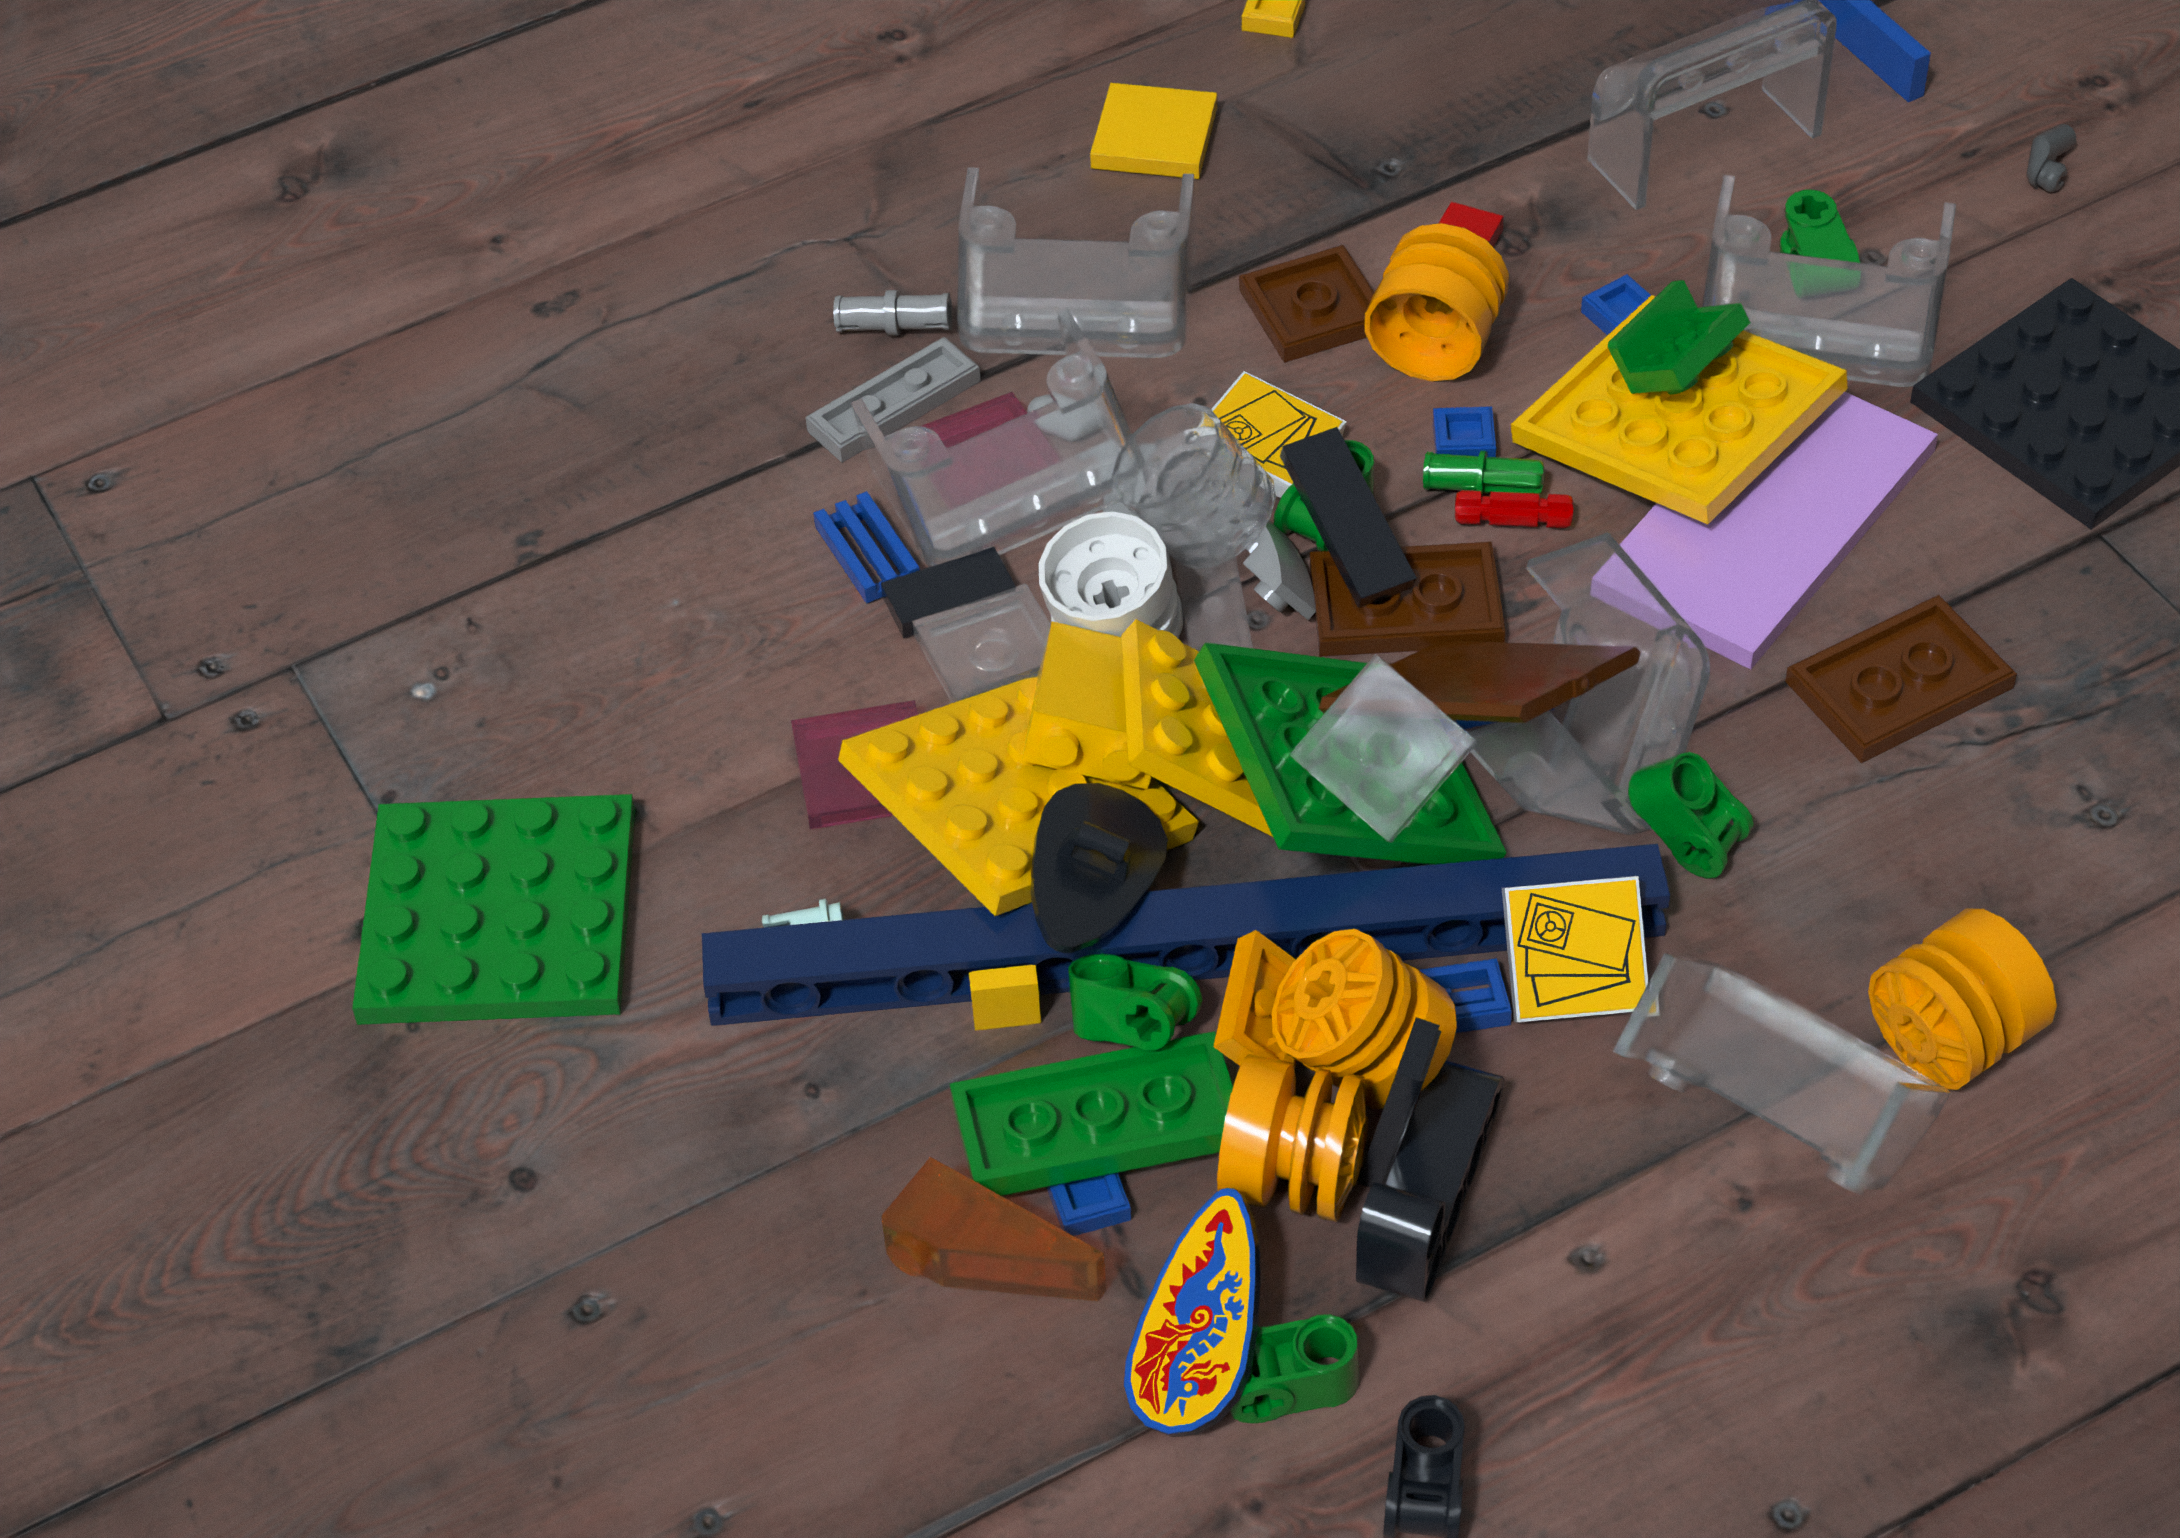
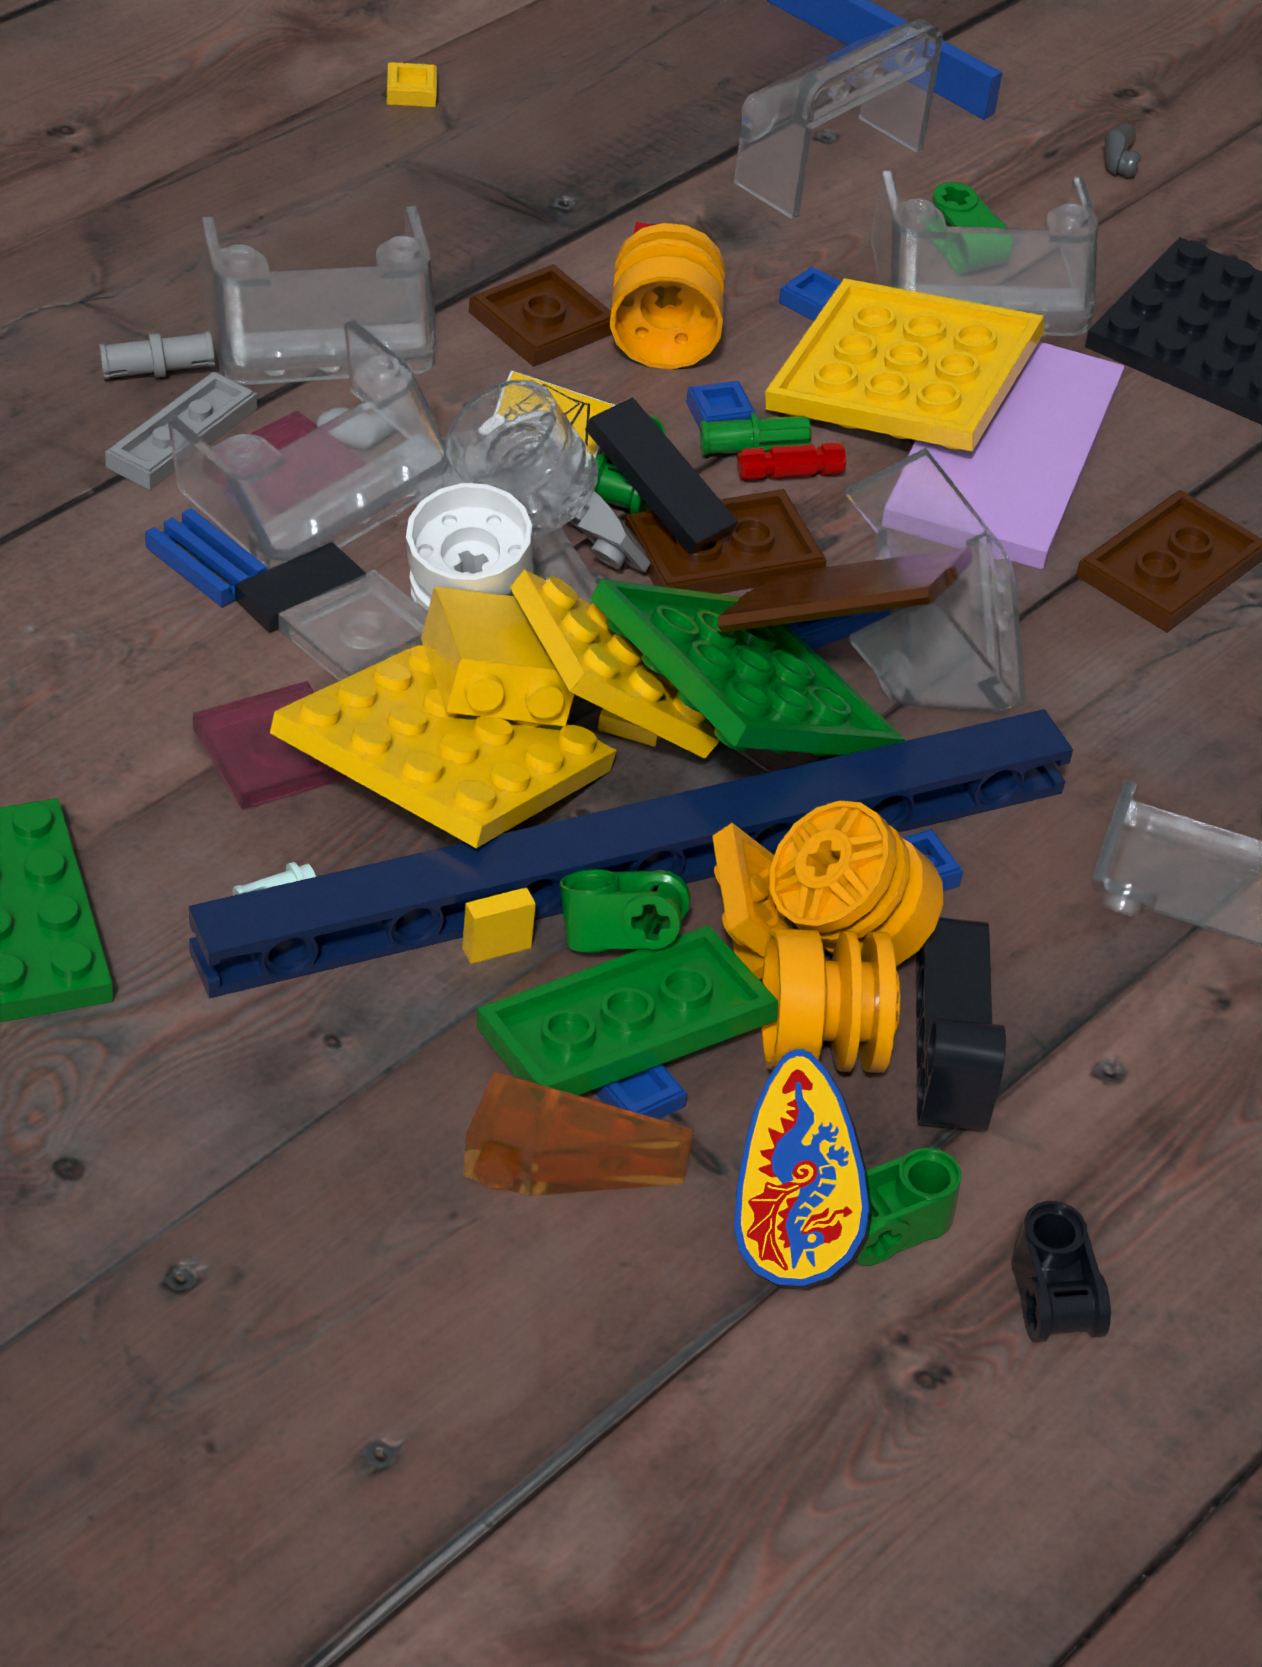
camera: 25 degrees left, 5 degrees down
(1092, 863) = (551, 789): black shield -> none
(1154, 130) = (342, 188): yellow tile -> none
(1383, 748) = (802, 645): clear tile -> none
(1400, 1102) = (930, 940): black tile -> none
(1575, 948) = (1006, 806): yellow tile -> none
(1674, 340) = (891, 309): green bracket -> none
(1690, 808) = (1056, 677): green piece -> none

